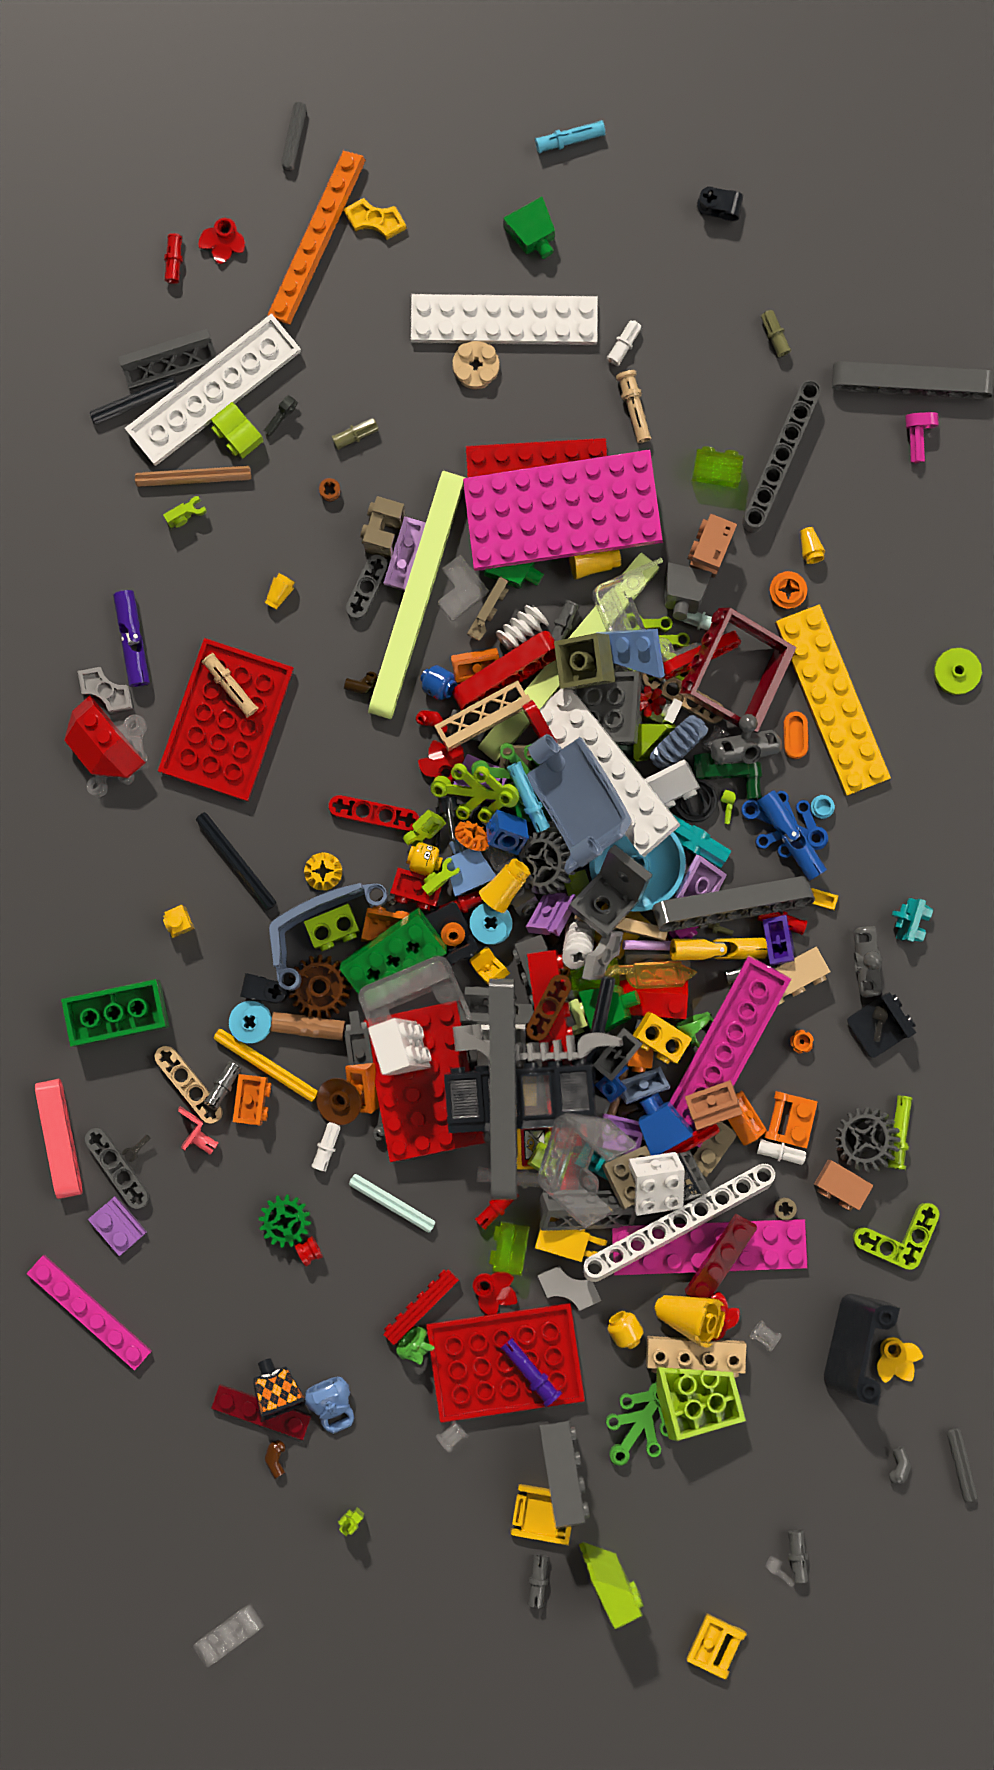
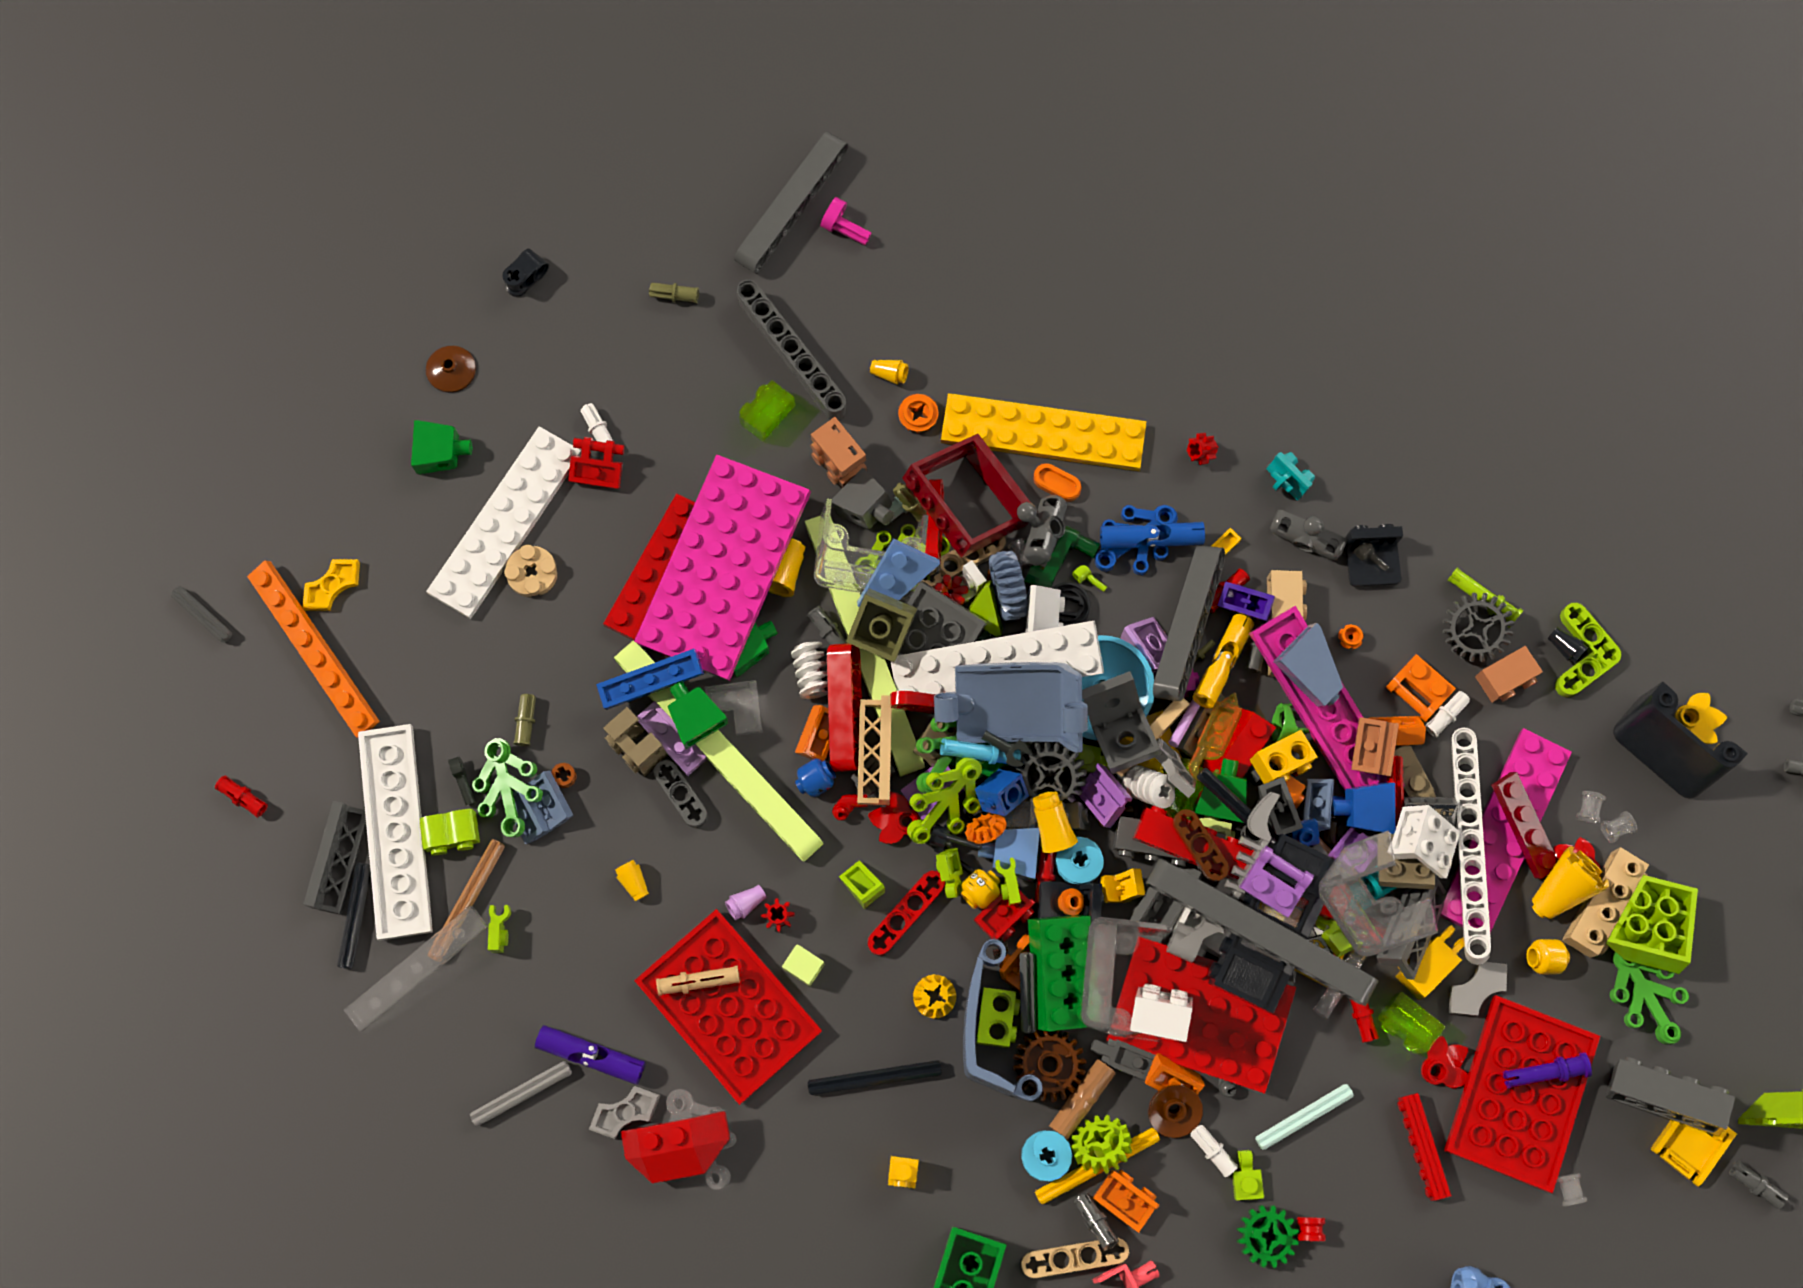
camera: 60 degrees left, 10 degrees down
(75, 605) = (520, 1093): none -> light grey axle
(120, 470) = (416, 968): none -> clear tile
(222, 243) = (258, 742): red plate -> none
(260, 988) = (1017, 1127): black piece -> none
(281, 1058) = (1101, 1144): none -> lime gear
(287, 758) = (803, 965): none -> yellowish green panel
(293, 485) = (543, 815): none -> sand blue slope
(295, 449) = (504, 784): none -> plant
(311, 685) = (743, 903): none -> lavender cone
(311, 711) = (777, 907): none -> red gear
(318, 1184) = (1247, 1182): none -> lime plate
(363, 685) = (774, 851): dark brown arm -> none
(363, 939) = (1028, 992): none -> dark grey axle
(376, 767) = (862, 884): none -> lime slope
(414, 1345) = (1460, 1174): bright green piece -> none
(429, 559) = (694, 714): none -> green torso
(438, 508) = (650, 679): none -> blue plate
(488, 611) = (772, 691): dark tan hinge -> none
(541, 1079) = (1272, 890): none -> medium lavender plate
(542, 816) = (1006, 747): none -> pearl dark grey bar
(563, 138) = (370, 376): medium azure pin -> none
(586, 364) = (596, 471): none -> red plate
(605, 207) = (452, 378): none -> reddish brown dish
(642, 433) = (649, 448): tan pin -> none
(699, 843) = (1114, 621): teal piece -> none
(705, 622) = (909, 501): none -> olive axle
(747, 1018) = (1311, 666): none -> sand blue slope
(769, 1305) = (1591, 807): none -> clear bush
(780, 1214) = (1494, 743): dark tan bush -> none
(822, 806) = (1138, 495): medium azure plate -> none
(892, 836) = (1202, 448): none -> red gear
(898, 1221) = (1568, 645): none -> black cone
(951, 681) = (1080, 322): lime plate -> none

